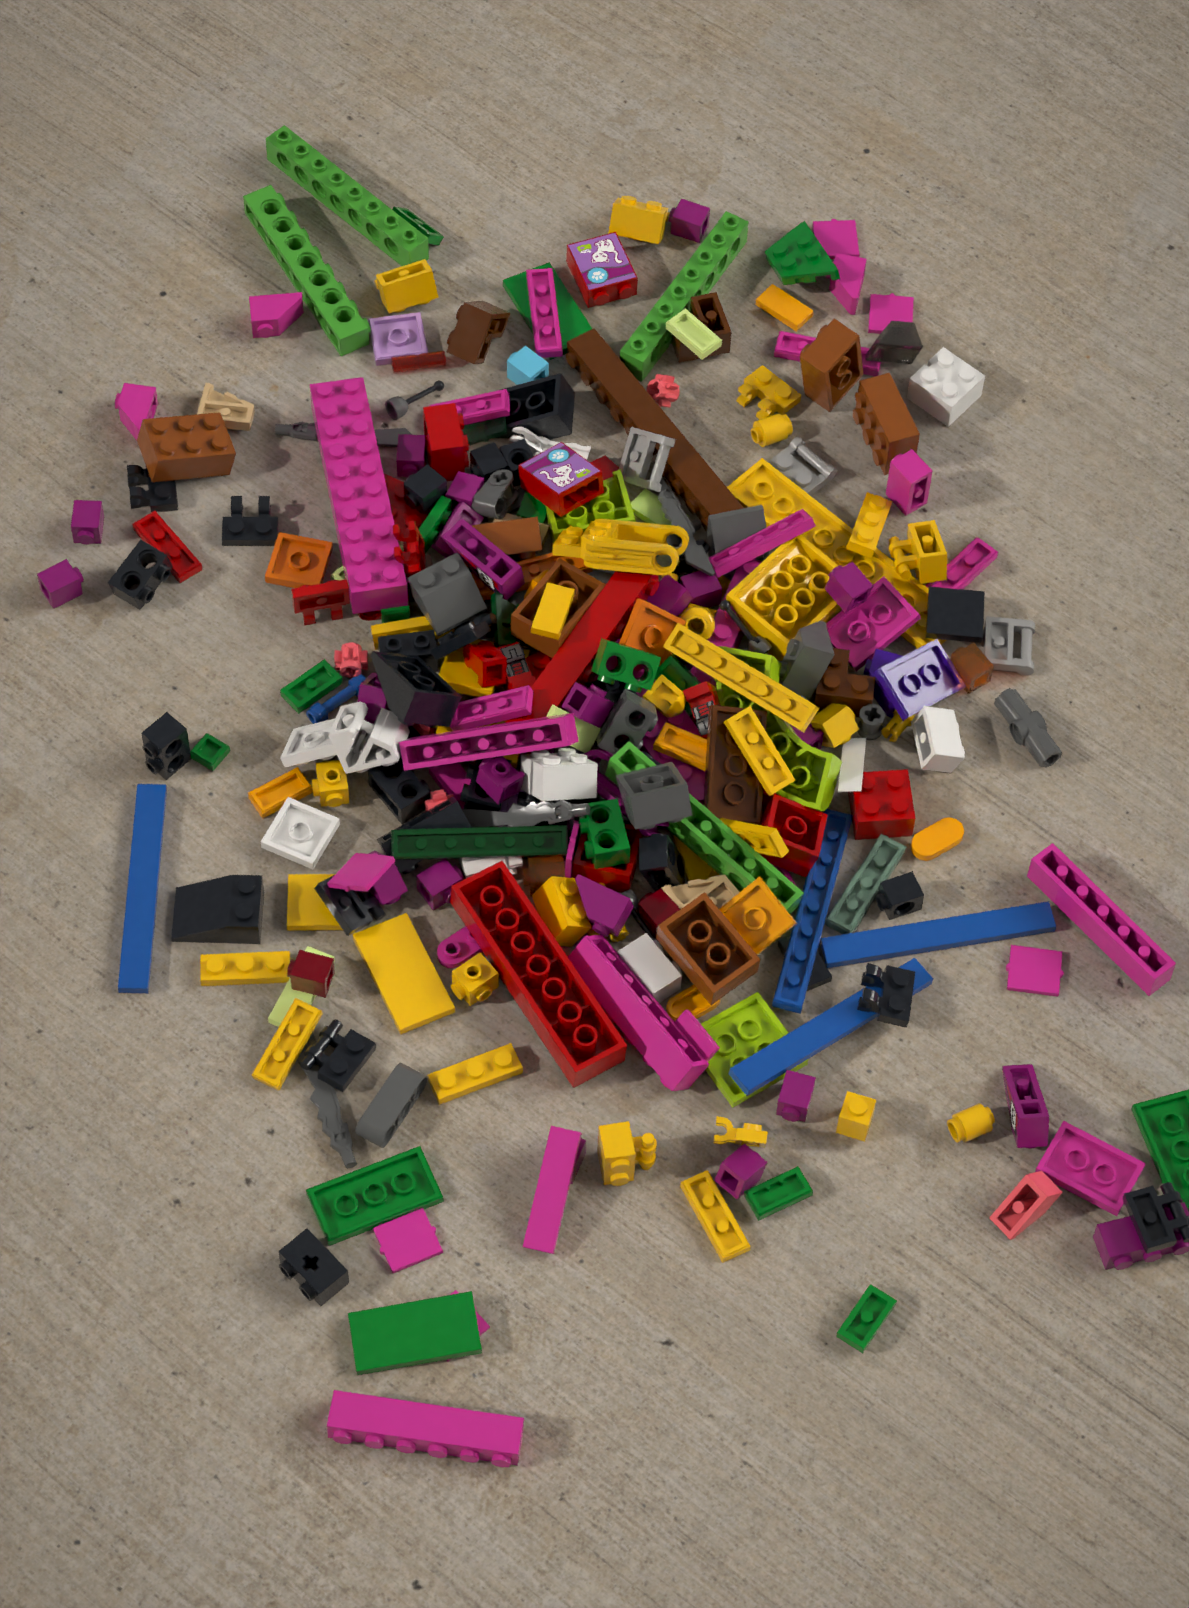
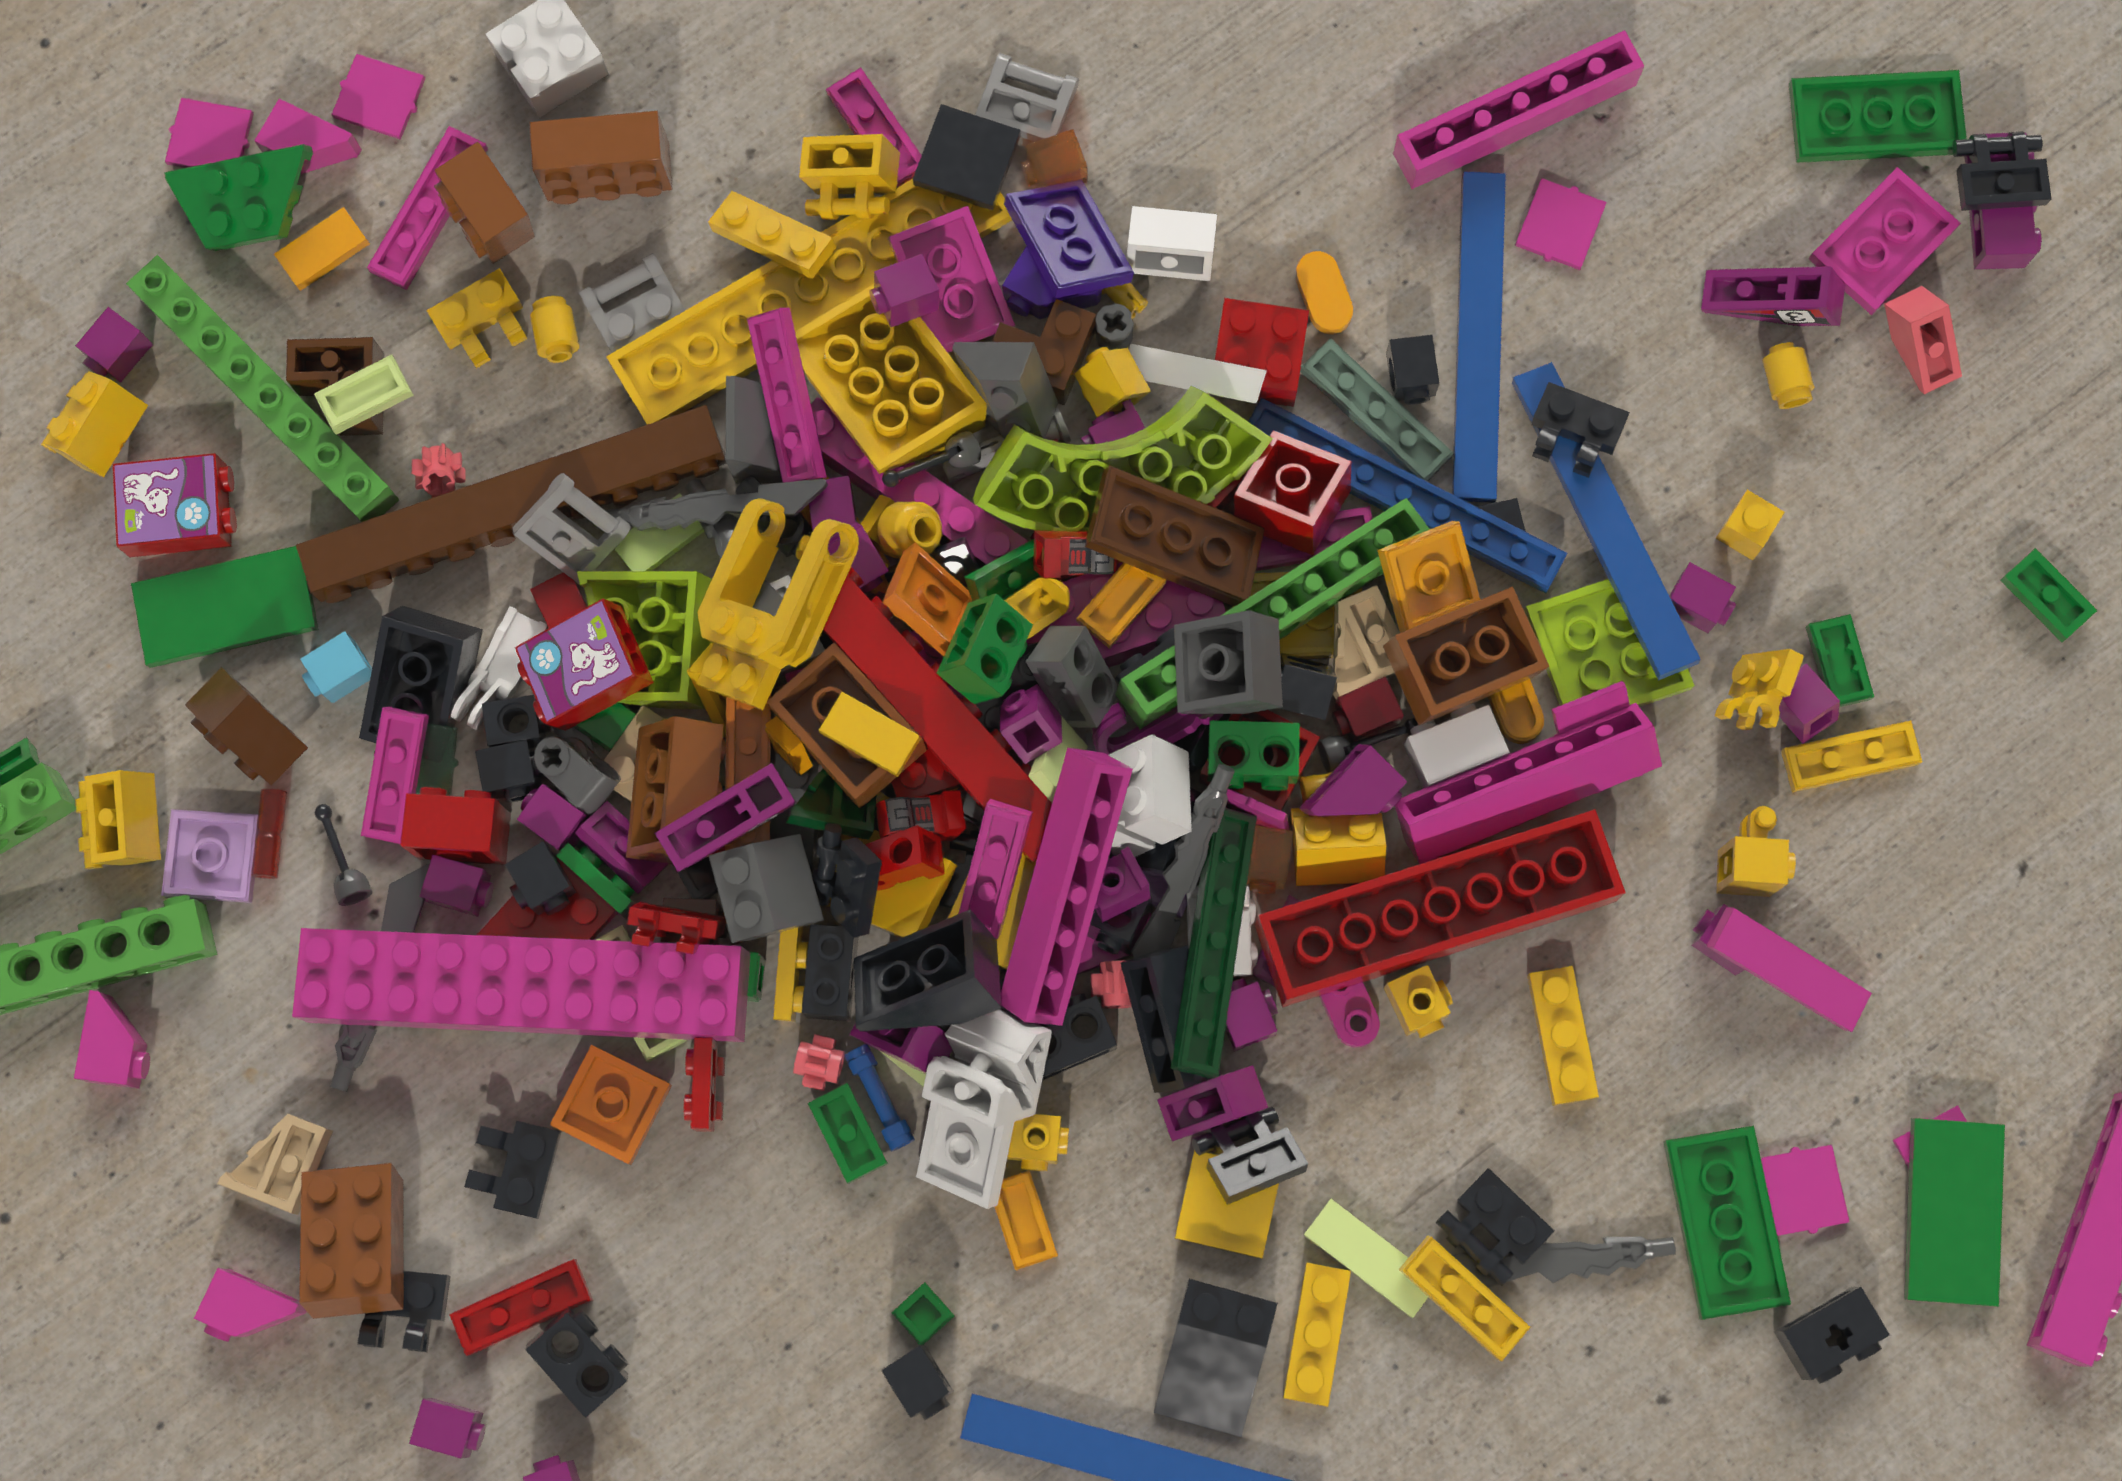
camera: 70 degrees left, 20 degrees up
(300, 833) = (1106, 1204): white plate -> none
(311, 973) = (1366, 1239): dark red brick -> none
(361, 872) = (1228, 1128): dark pink piece -> none
(391, 1105) = (1595, 1167): dark grey beam -> none
(403, 973) = (1377, 1101): yellow tile -> none
(544, 312) = (234, 615): dark pink tile -> none
(741, 677) = (1046, 487): yellow plate -> none
(759, 751) = (1174, 495): yellow plate -> none
(761, 838) = (1319, 538): yellow tile -> none
(896, 344) = (447, 102): clear smoke slope -> none
(908, 482) = (716, 155): dark pink brick -> none
(1028, 727) = (1175, 115): dark grey piece -> none

